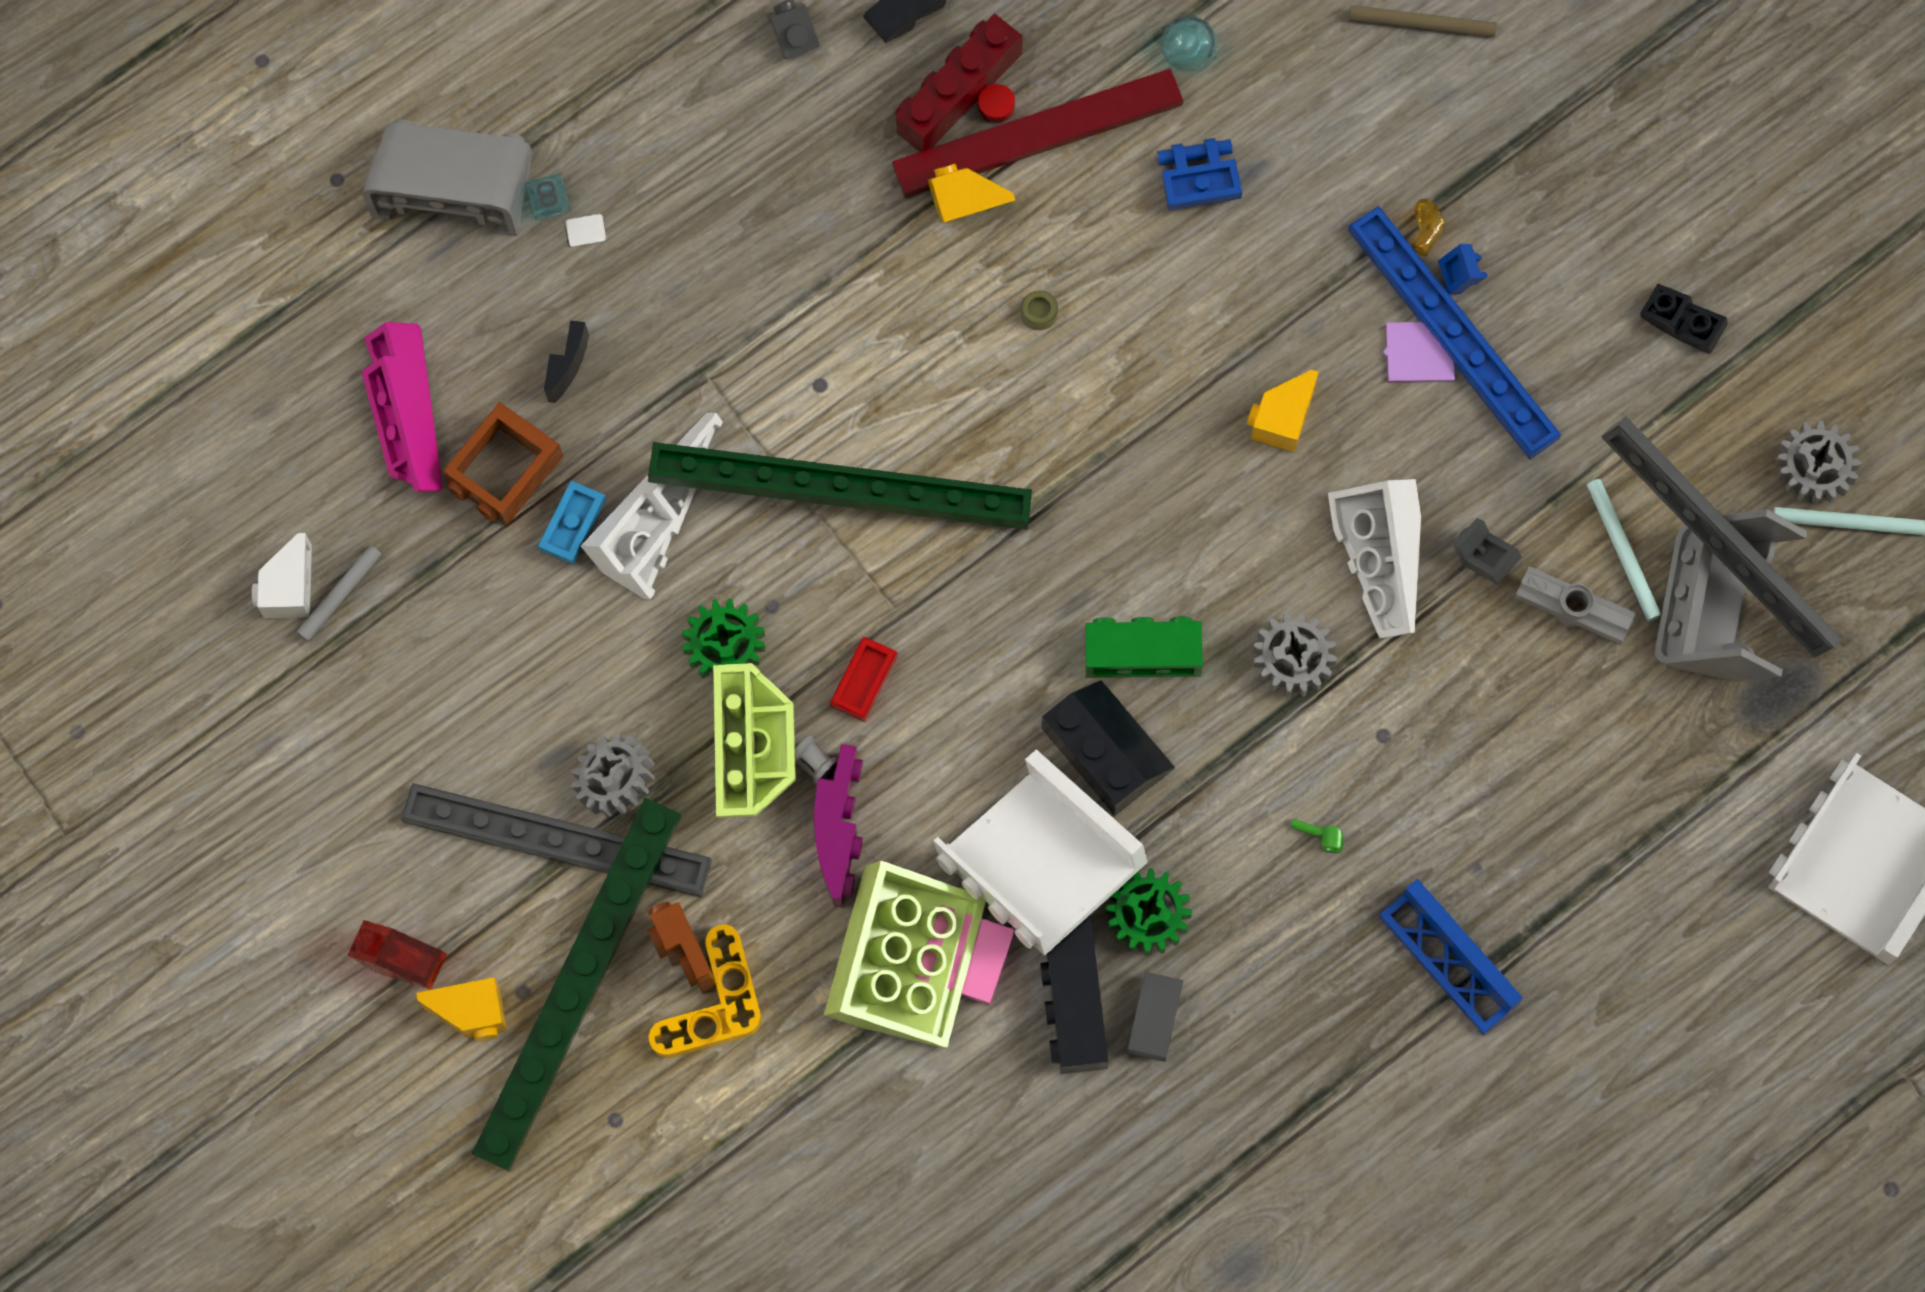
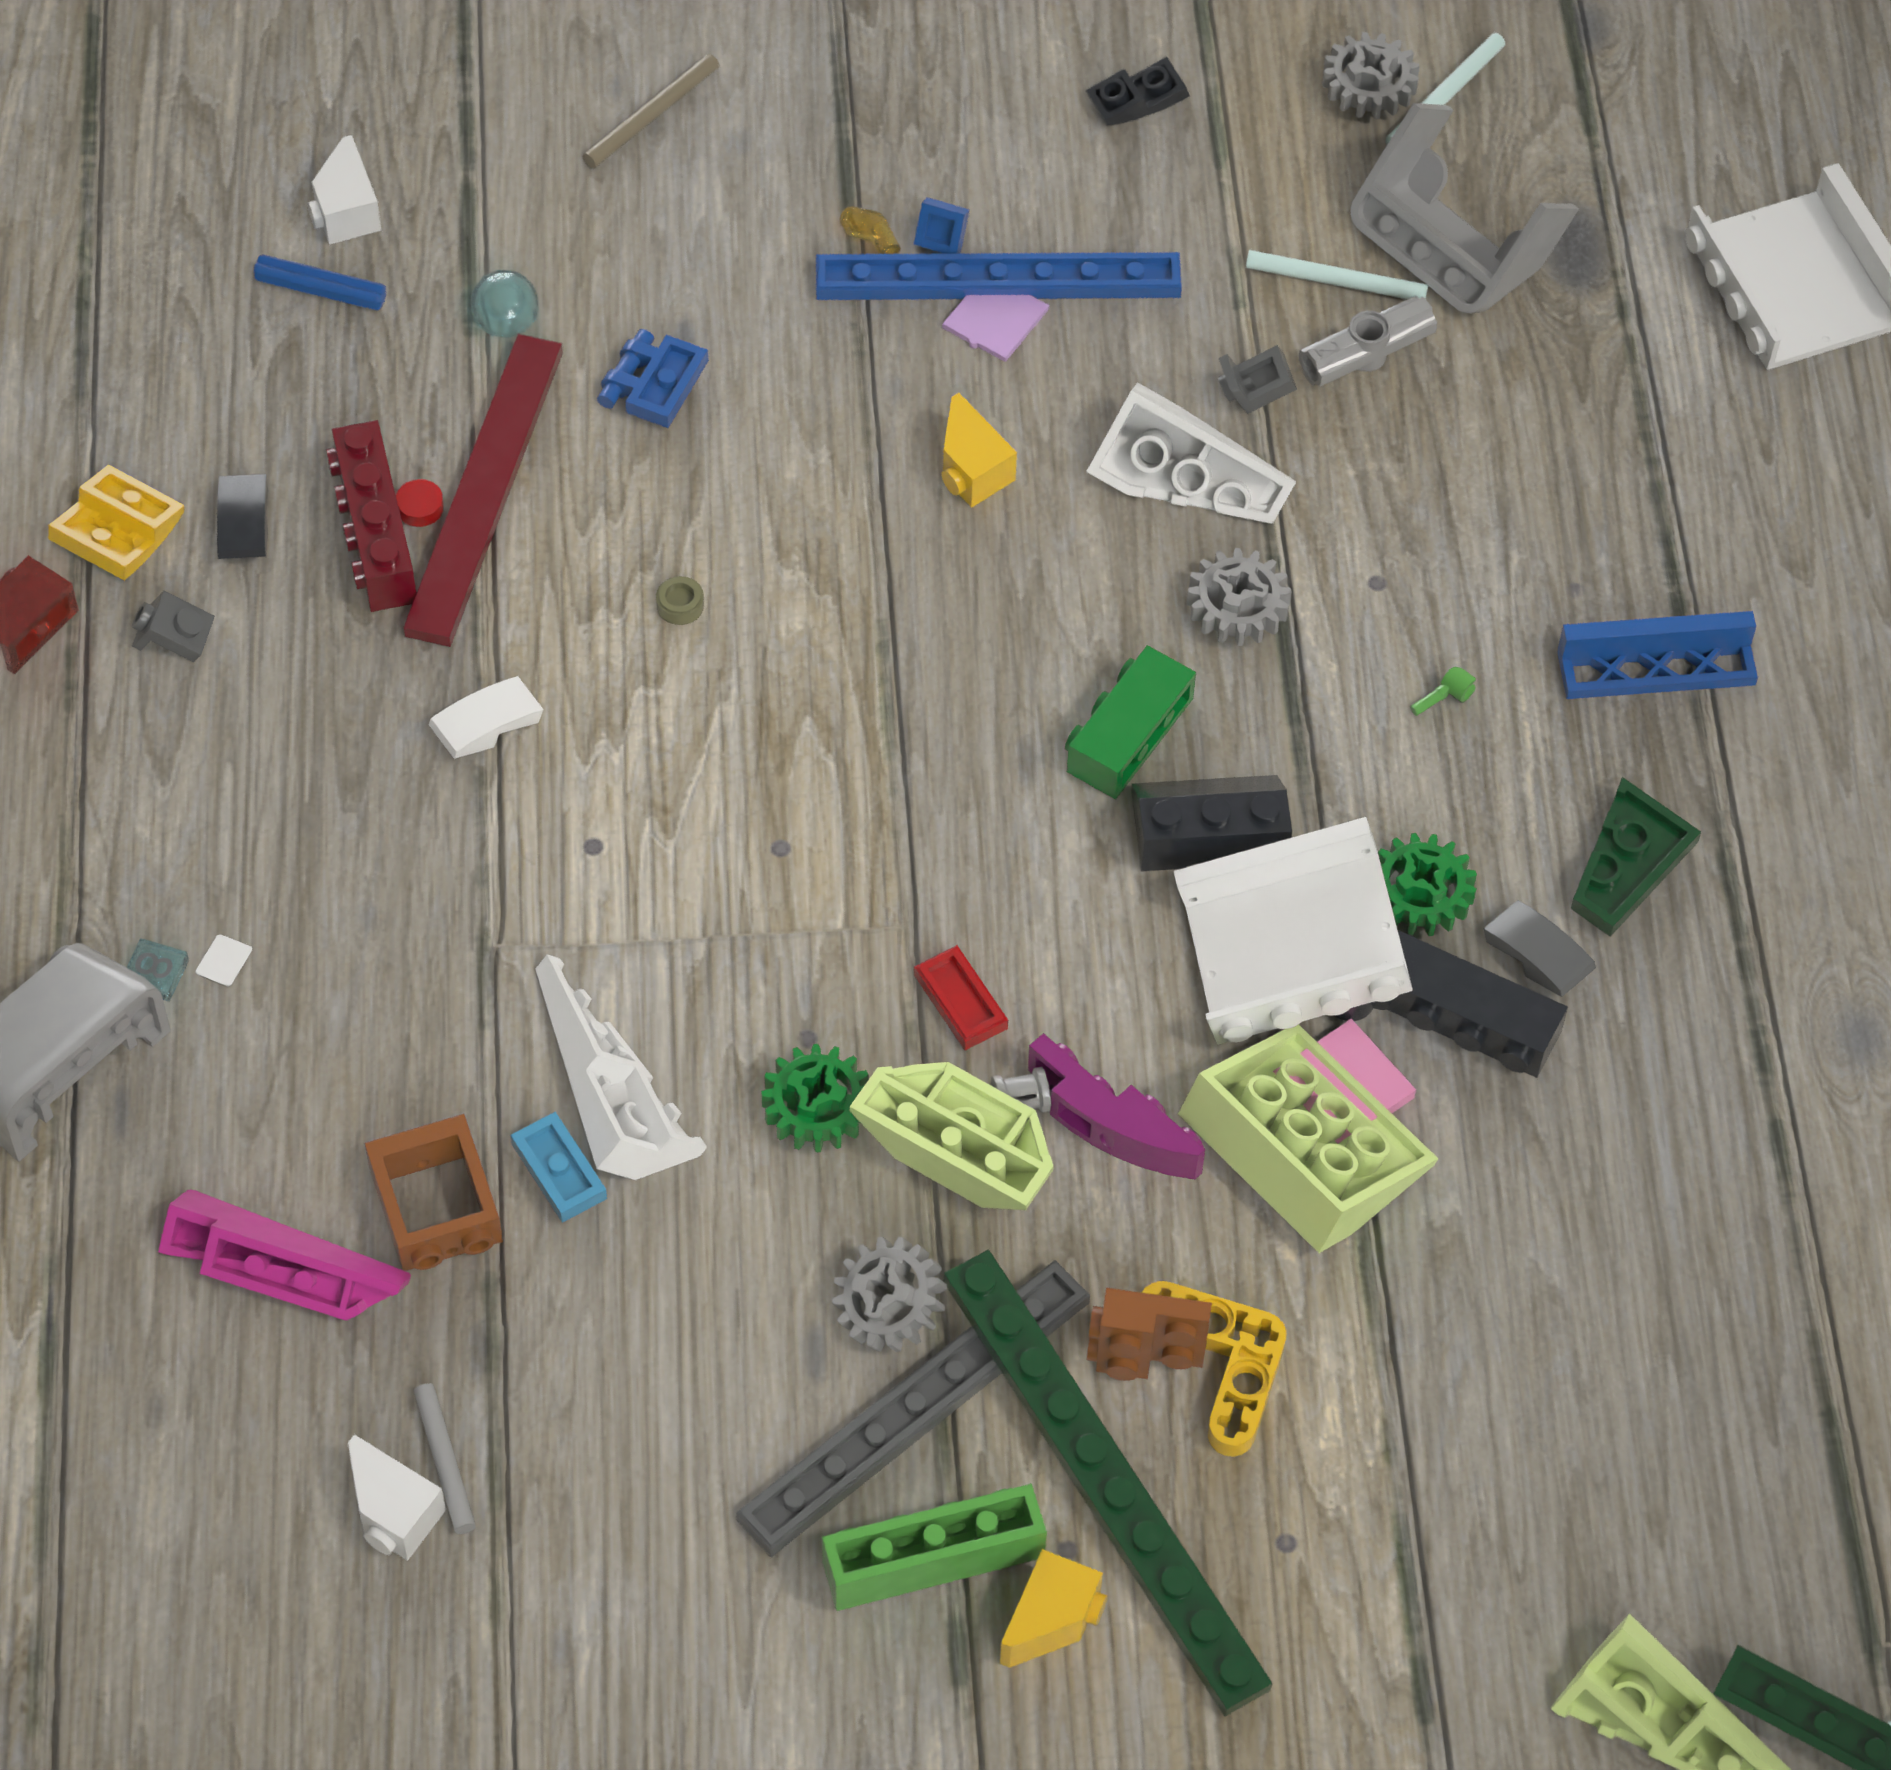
camera: 60 degrees left, 15 degrees down
(396, 955) = (940, 1638): clear red slope -> none
(456, 912) = (933, 1546): none -> bright green brick
(562, 368) = (368, 1063): black slope -> none
(839, 485) = (728, 883): dark green plate -> none
(861, 255) = (483, 715): none -> white slope
(964, 193) = (499, 580): yellow slope -> none
(1269, 1034) = (1631, 857): none -> dark green wing
(1721, 537) = (1397, 173): dark grey tile -> none

